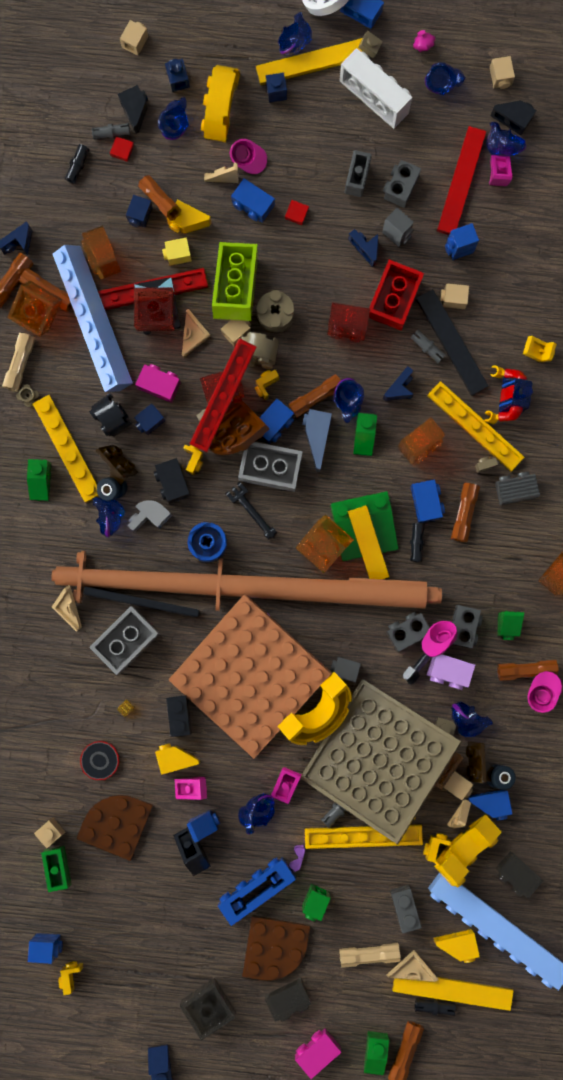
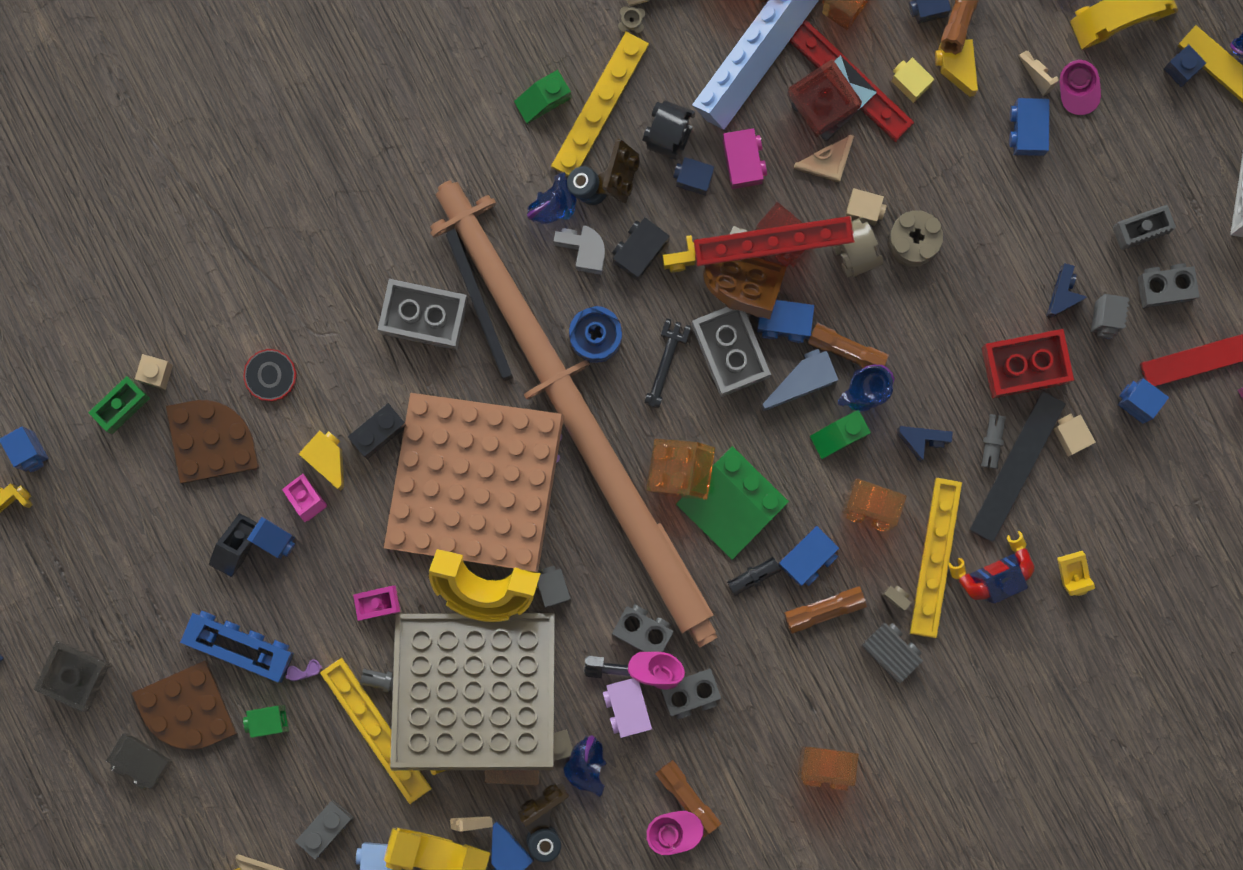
camera: 55 degrees right, 0 degrees up
(66, 608) = (416, 225): tan tile -> none
(125, 708) = (347, 366): clear yellow piece -> none
(235, 281) = (919, 168): lime brick -> none
(257, 812) = (325, 590): clear blue hair -> none
(267, 378) = (832, 280): yellow bracket -> none
(296, 212) = (1052, 186): red tile -> none
(317, 1053) = (101, 832): dark pink brick -> none
(348, 322) = (958, 329): clear red brick -> none
(368, 543) = (714, 519): yellow tile -> none
(386, 953) = (234, 806): tan axle -> none
(431, 848) = (411, 816): yellow bracket -> none
(459, 786) = (502, 801): tan brick -> none
(510, 624) = (726, 743): green slope -> none

